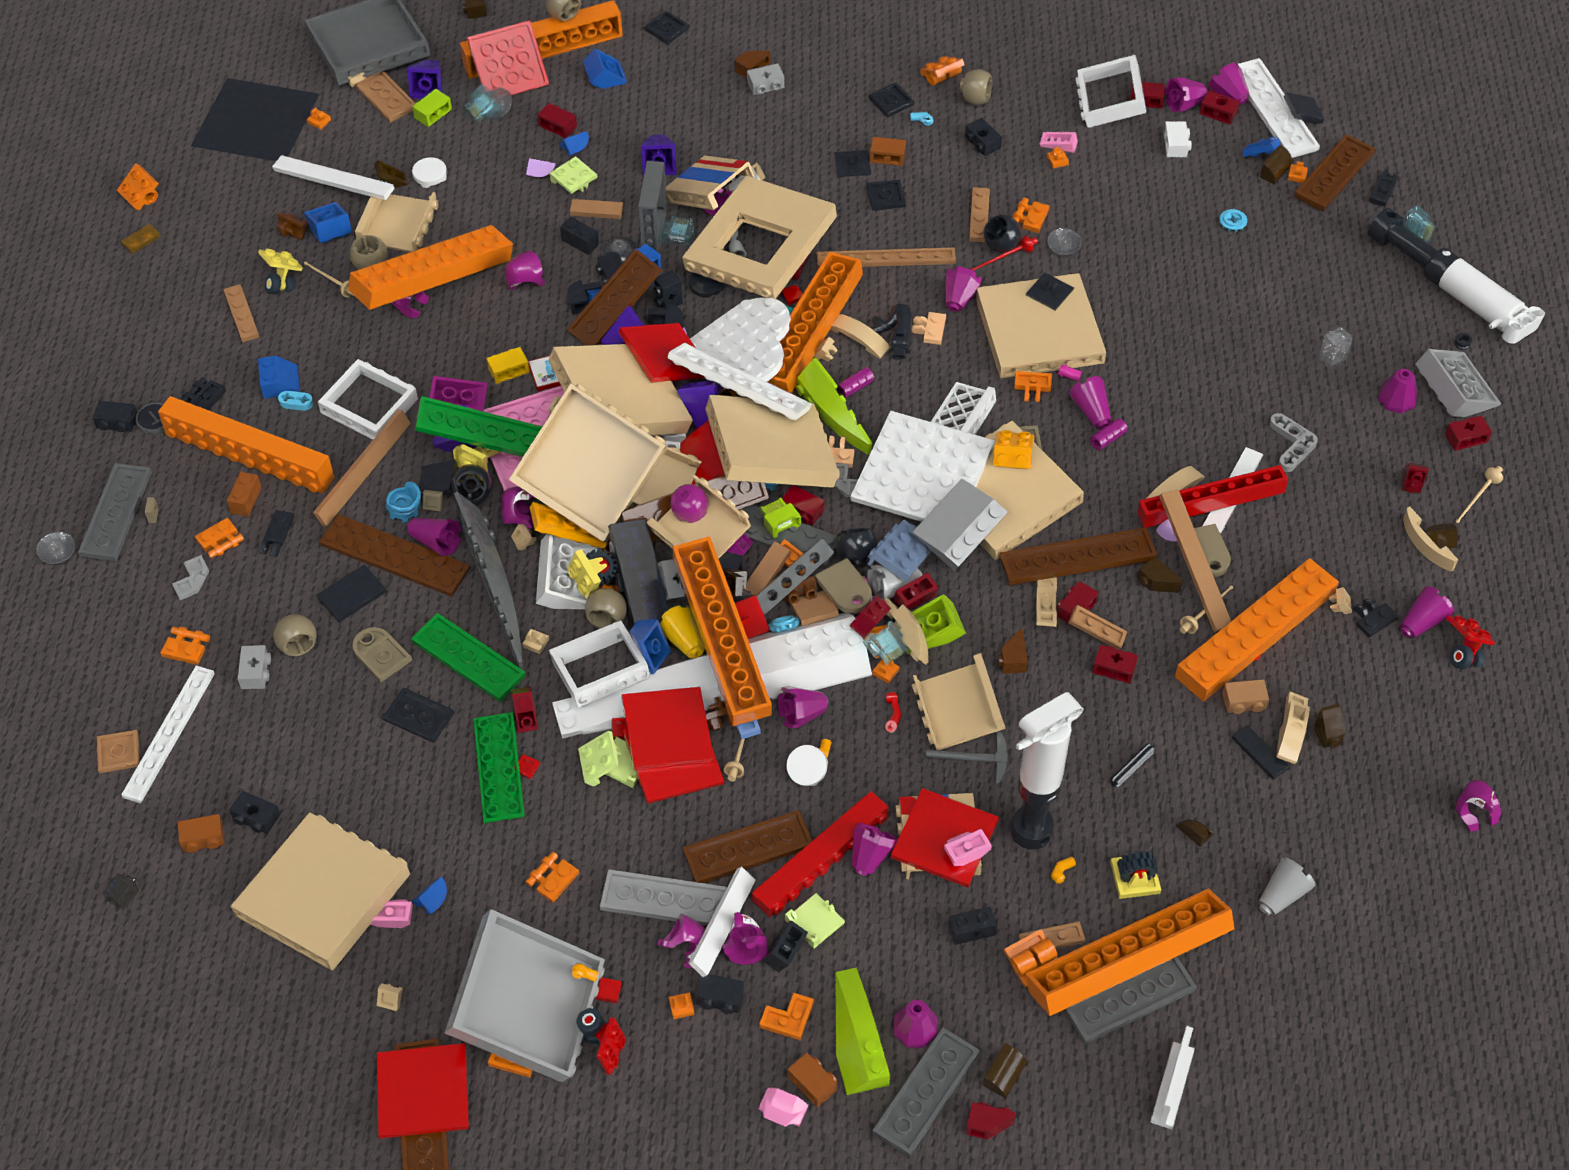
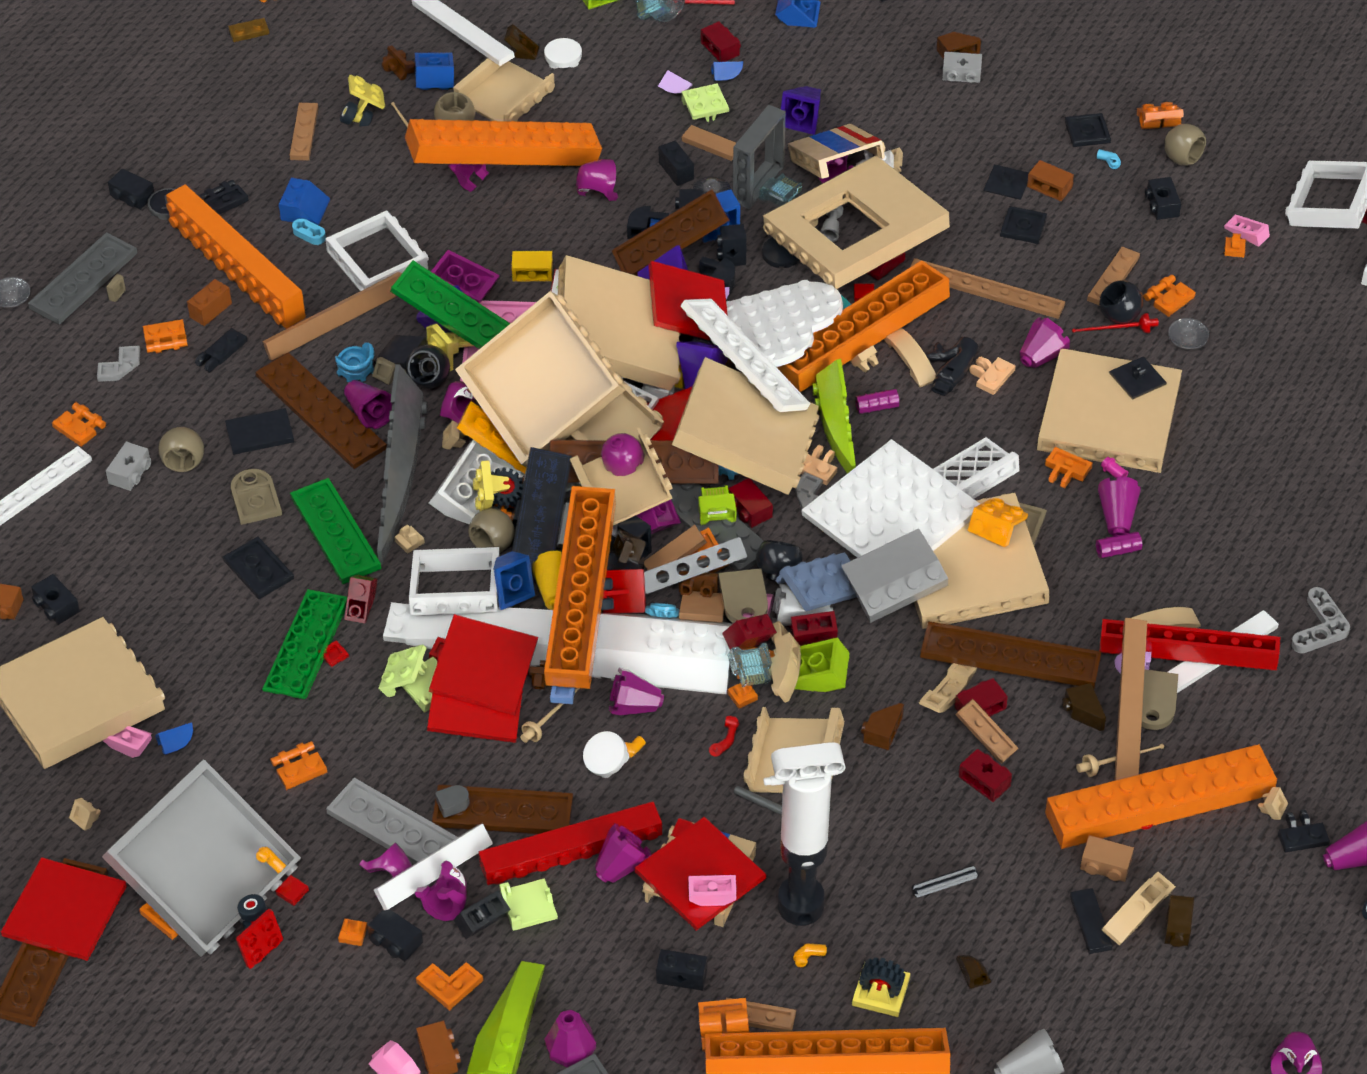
camera: 25 degrees right, 5 degrees down
(705, 856) = (452, 800): none -> dark grey piece

